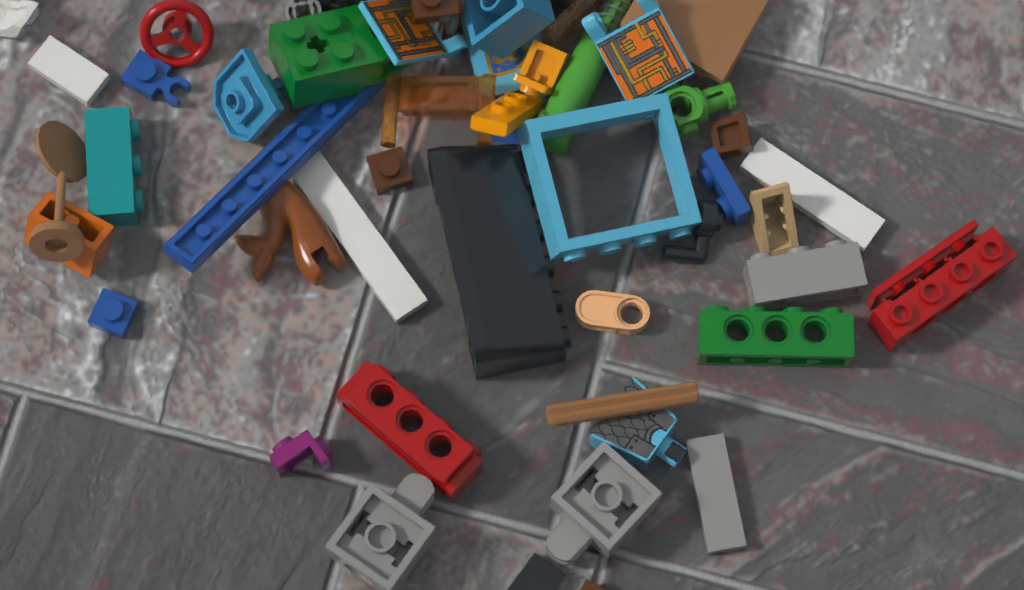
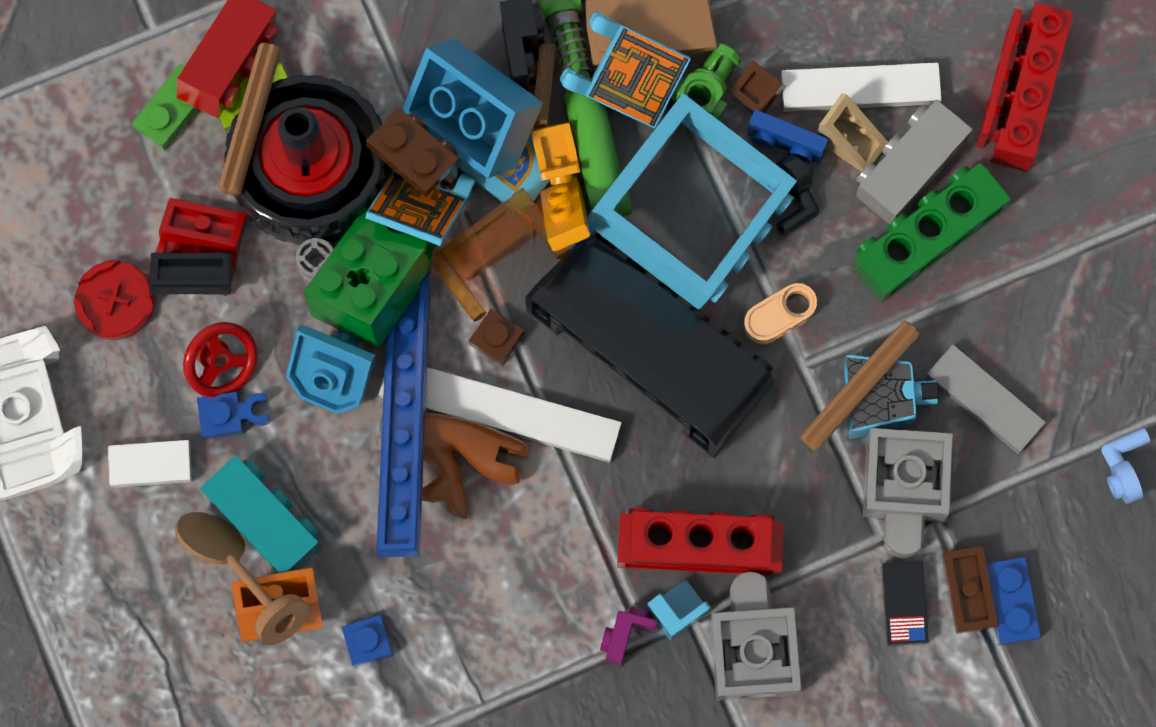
camera: 35 degrees left, 5 degrees up
(353, 466) = (678, 609): none -> medium azure panel

